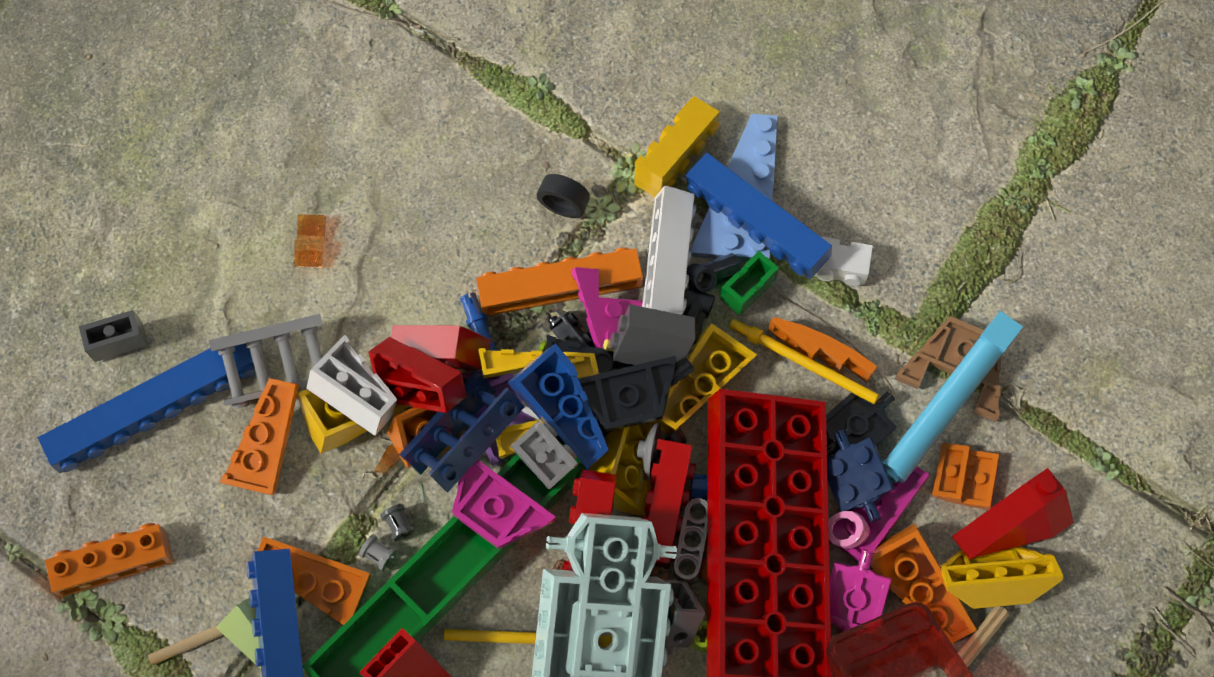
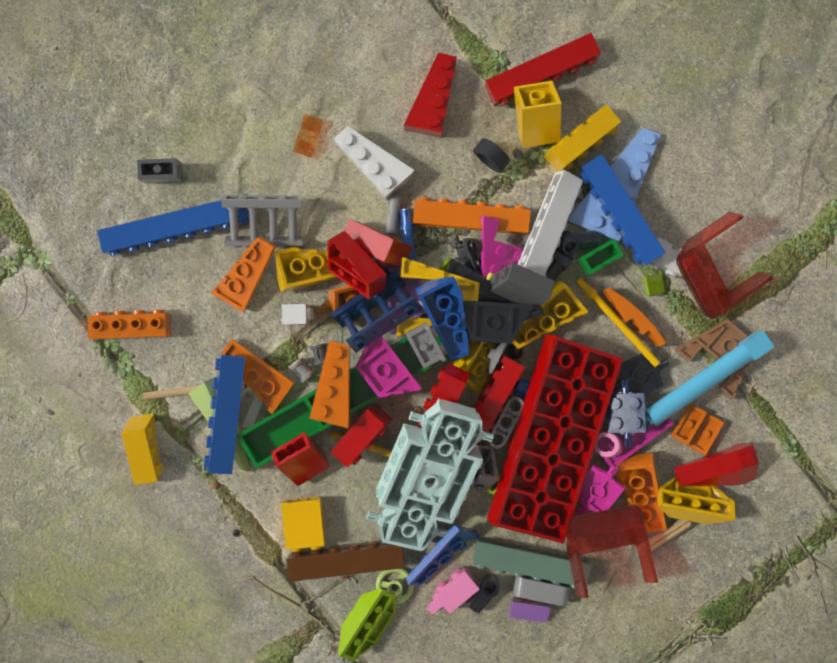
camera: 15 degrees right, 20 degrees up
(320, 632) = (252, 413): none -> white sticker
(351, 387) = (310, 259): white wedge -> none
(351, 472) = (297, 314): none -> white brick
(410, 249) = (376, 164): none -> white wedge
(429, 557) = (334, 387): none -> orange wedge
(452, 303) = (394, 210): none -> light grey piece
(464, 158) = (431, 104): none -> red wedge
(487, 617) = (361, 436): none -> red wedge
(597, 81) = (544, 68): none -> red brick
(608, 131) = (538, 114): none -> yellow slope
(834, 302) = (653, 284): none -> lime slope
(896, 267) = (704, 277): none -> clear red windscreen

